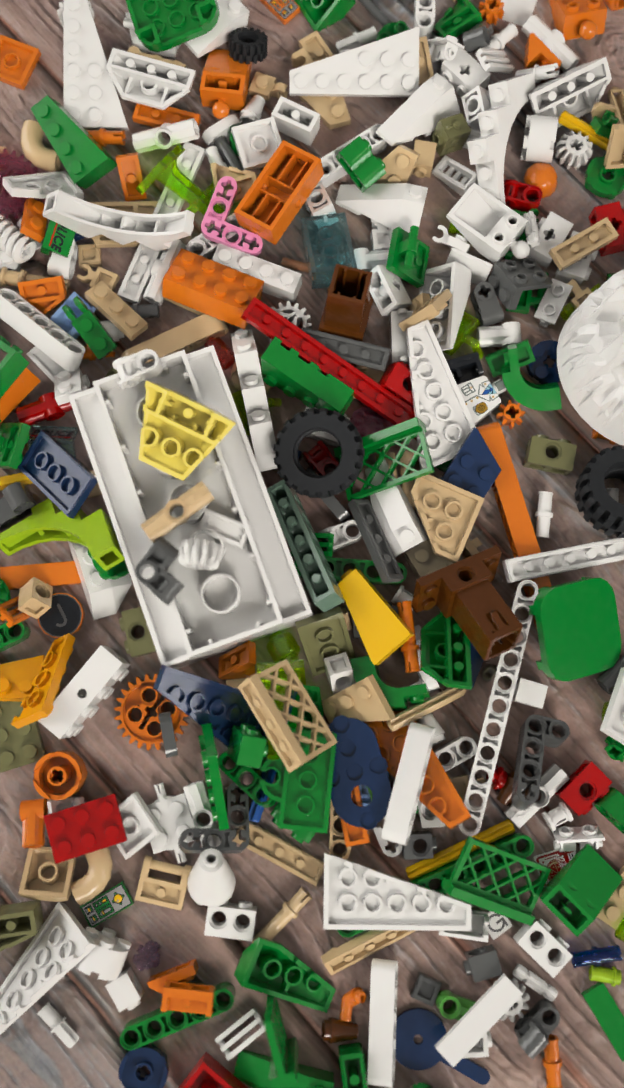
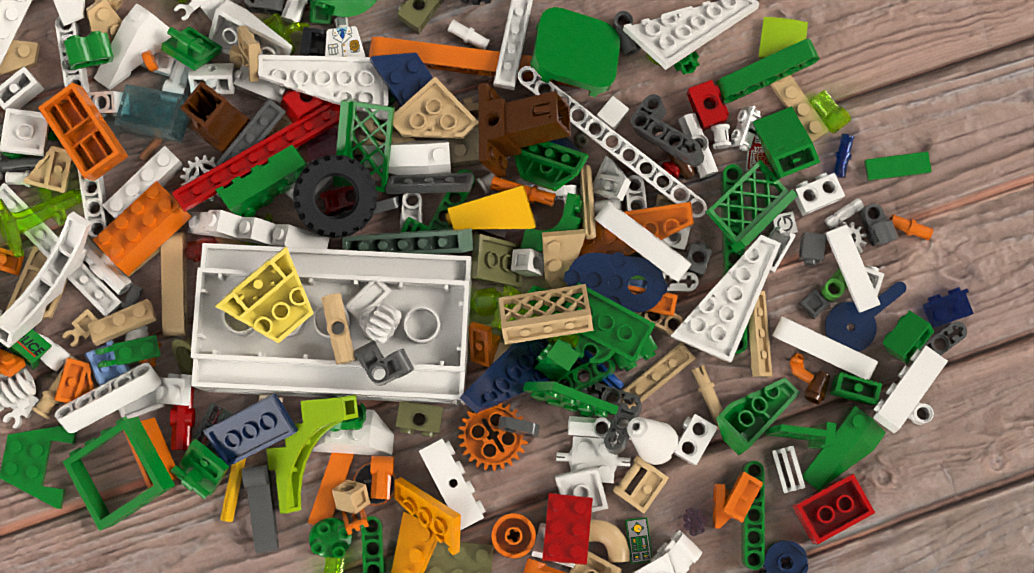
camera: 70 degrees left, 0 degrees up
(72, 617) = (381, 470): none -> orange piece
(89, 255) = (55, 328): tan tile -> none
(125, 990) = (715, 551): white brick -> none
(136, 368) = (197, 313): white piece -> none
(219, 220) = (82, 196): bright pink beam -> none
(377, 224) = (150, 61): none -> orange tile
(452, 853) = (715, 232): yellow axle -> none
(459, 721) = (610, 181): none -> white wing
(506, 418) = (367, 19): orange gear -> none
(605, 975) = (860, 155): lime pin -> none

